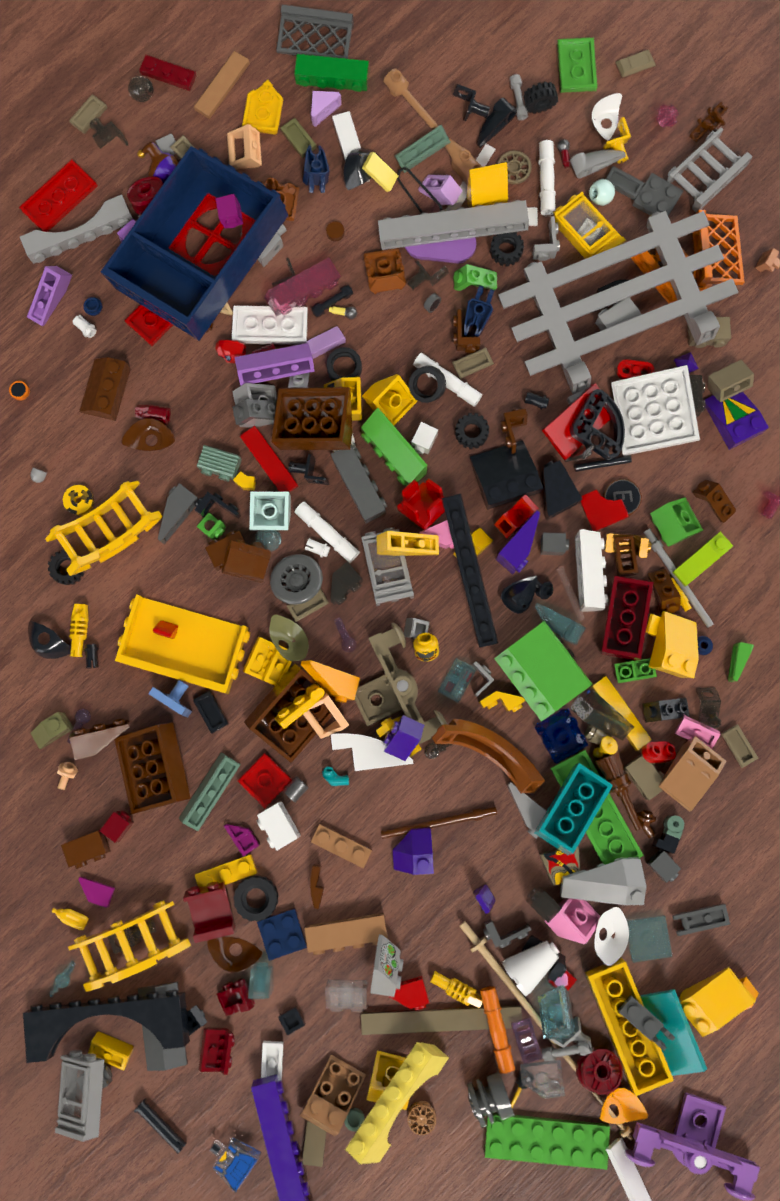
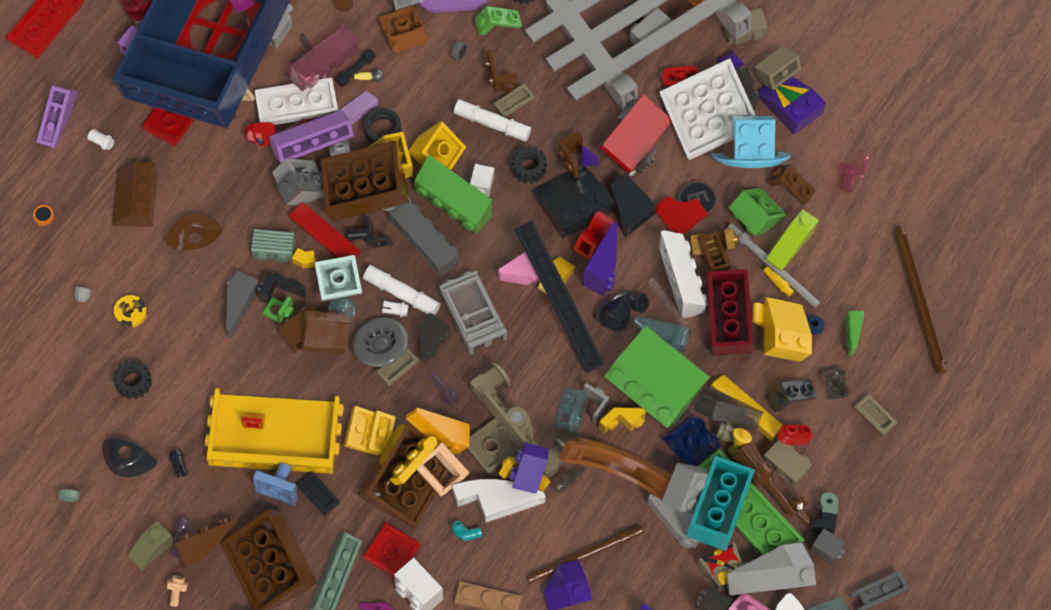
camera: 20 degrees left, 15 degrees down
(78, 629) = (159, 438): yellow hinge -> none
(92, 306) = (105, 118): dark blue plate -> none
(110, 217) = (40, 67): light grey arch -> none
(115, 544) = (181, 346): yellow fence -> none
(153, 412) = (187, 208): dark red hinge -> none
(286, 629) = (380, 395): olive piece -> none
(295, 789) = (427, 551): flat silver gear -> none
(407, 544) = (487, 281): yellow slope -> none
(414, 388) = (458, 127): black tyre -> none
(414, 627) = (517, 367): light grey slope -> none
(422, 503) = (495, 242): red panel -> none
(423, 276) = (444, 26): clear smoke bracket -> none
(426, 647) = (531, 381): yellow head -> none
(478, 312) = (509, 48): dark blue hinge -> none
(529, 436) = (589, 158): none -> dark purple slope
(537, 400) = (588, 123): black pin -> none
(544, 788) = (685, 487): none -> light grey slope
(554, 544) = (638, 256): dark grey brick -> none
(587, 429) = (647, 139): black beam -> none
(602, 463) = (669, 171): black bar -> none
(634, 671) = (751, 364): bright green slope -> none
(666, 590) = (765, 279): reddish brown bracket -> none
(689, 457) = (753, 143): none -> medium azure piece
(690, 728) = (829, 409): bright pink plate -> none
(692, 773) = (832, 445): medium nougat slope -> none

